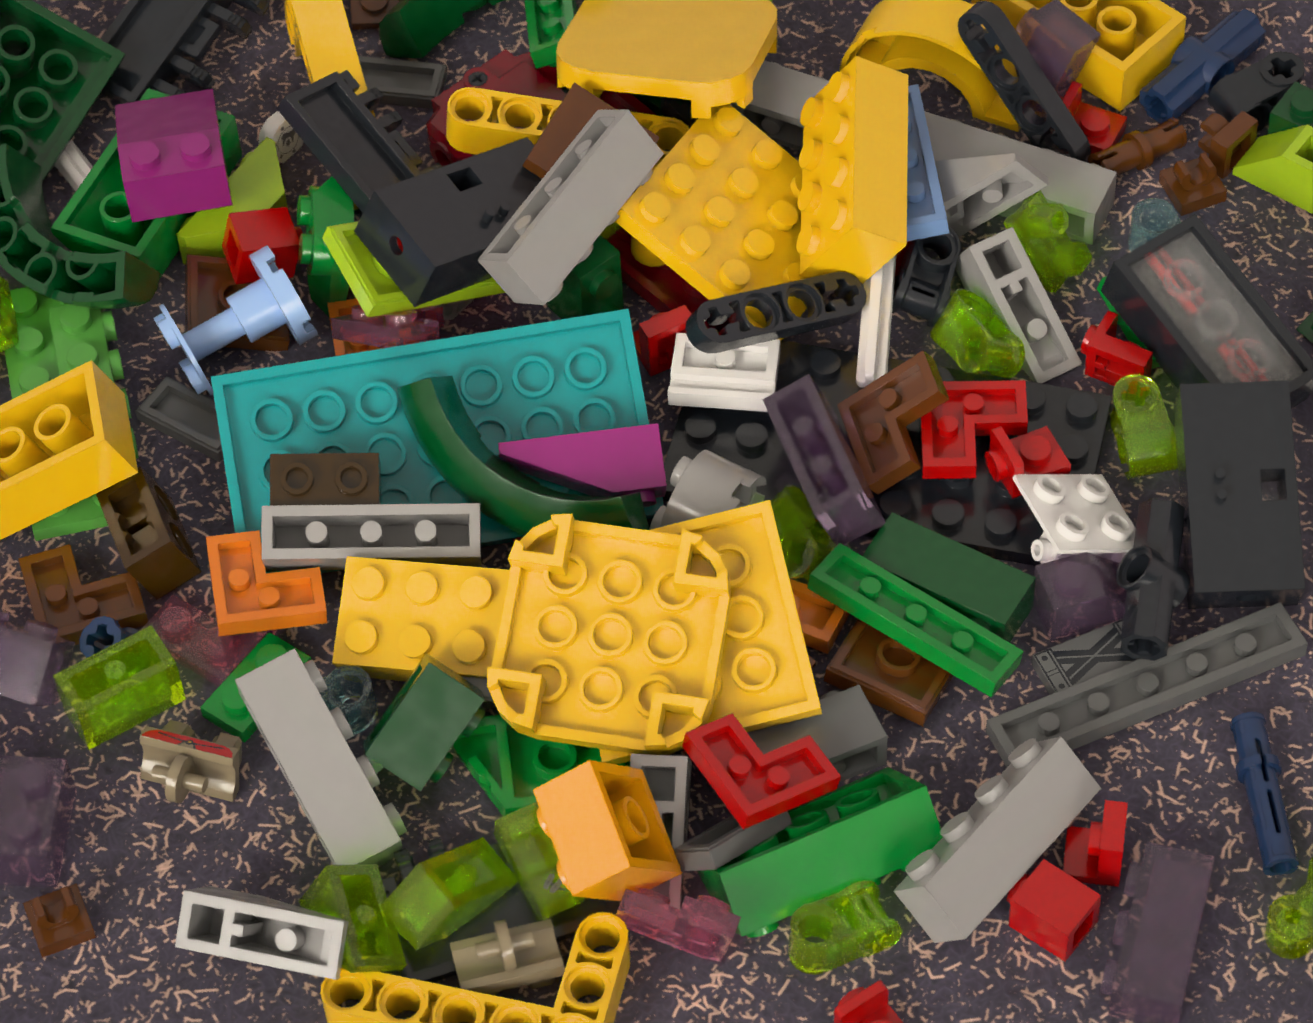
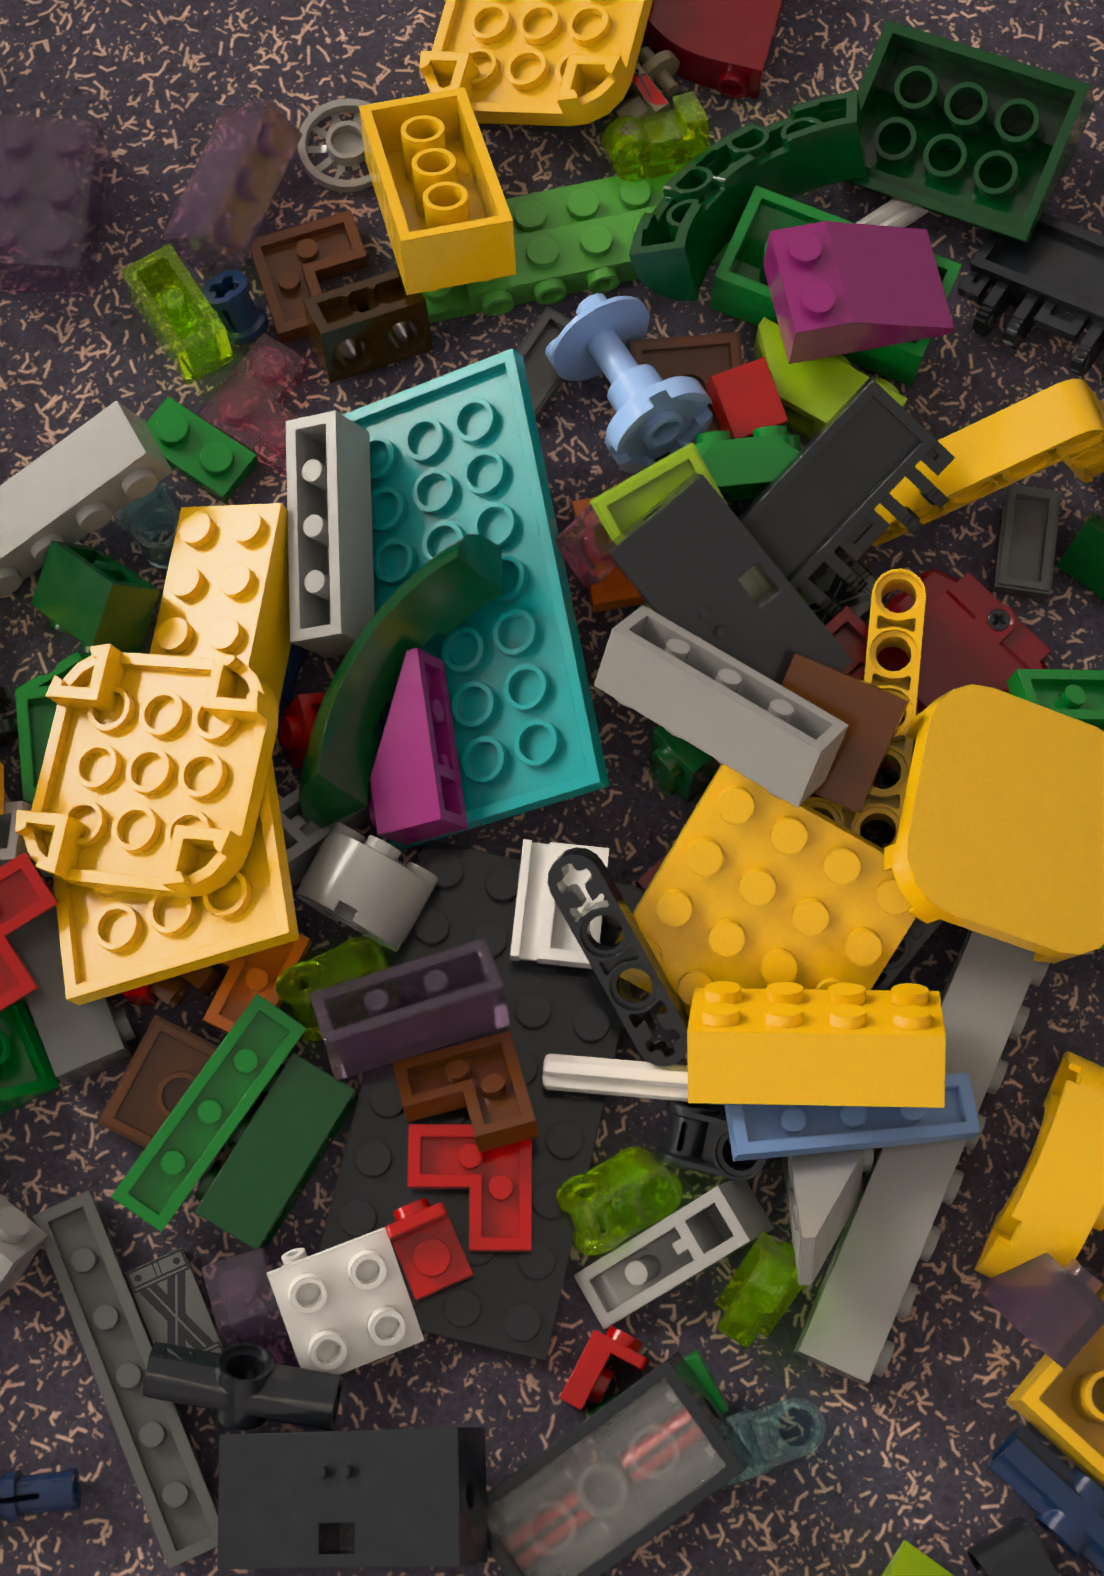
camera: 85 degrees right, 20 degrees up
(191, 764) = (111, 371): dark tan hips -> none
(257, 600) = (262, 428): orange plate -> none
(285, 137) = (933, 415): white tile -> none
(325, 479) = (385, 480): dark brown brick -> none
(657, 338) = (631, 840): red bracket -> none
(1029, 86) = (988, 1266): black beam -> none
(1099, 125) = (975, 1355): red bracket -> none
(1140, 148) = (933, 1418): reddish brown pin -> none
(1142, 427) = (475, 1393): clear neon green piece -> none
(1193, 184) = (882, 1486): reddish brown tile -> none
(1226, 140) = (943, 1535): reddish brown tile -> none

